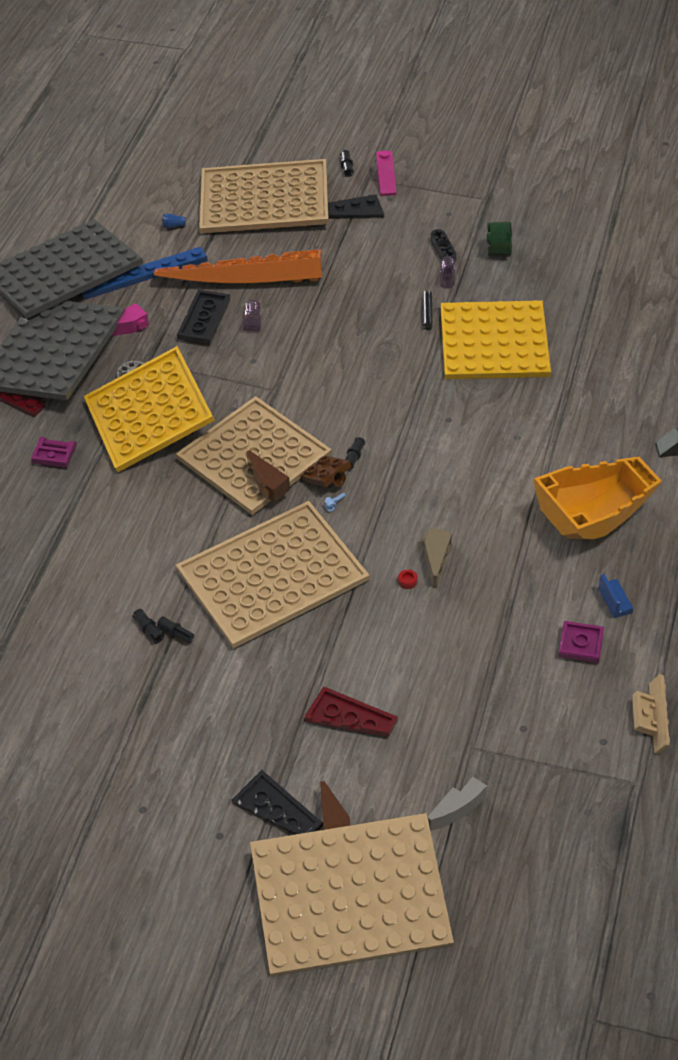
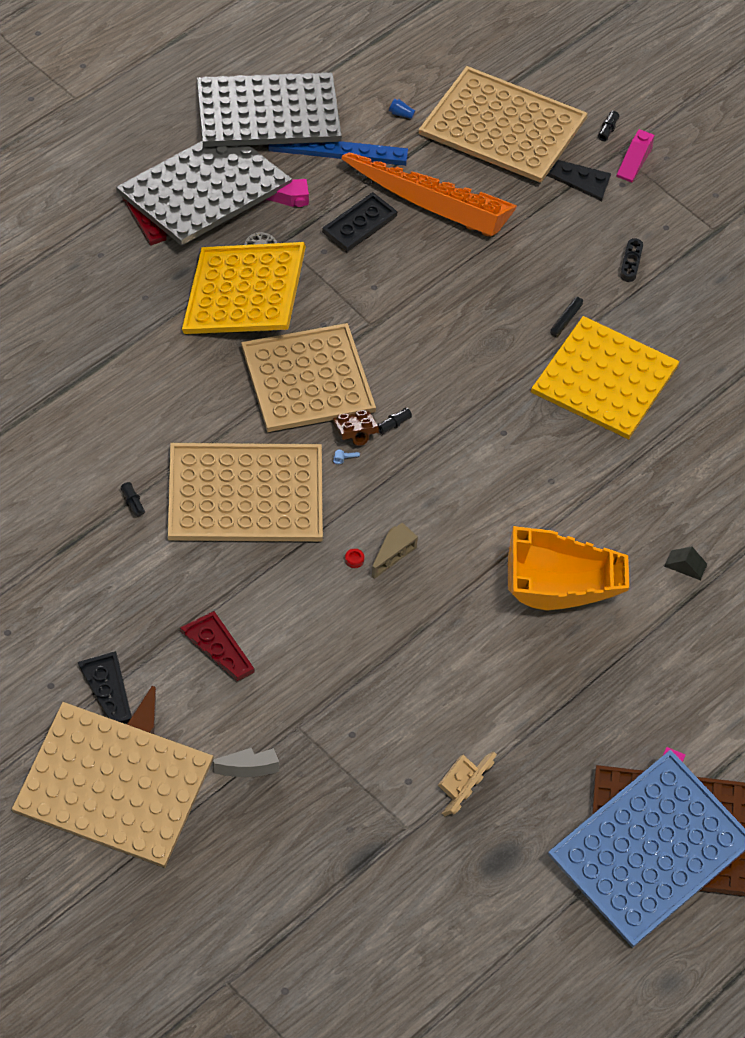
camera: 25 degrees right, 5 degrees up
(53, 452) = (140, 291): magenta plate -> none
(148, 626) = (113, 484): black pin -> none
(252, 316) = (400, 246): piece -> none
(270, 481) = (299, 411): reddish brown slope -> none
(447, 272) = (613, 287): piece -> none
(499, 238) = (686, 278): dark green brick -> none
(581, 641) = (455, 690): magenta plate -> none
(614, 597) = (516, 668): blue panel -> none

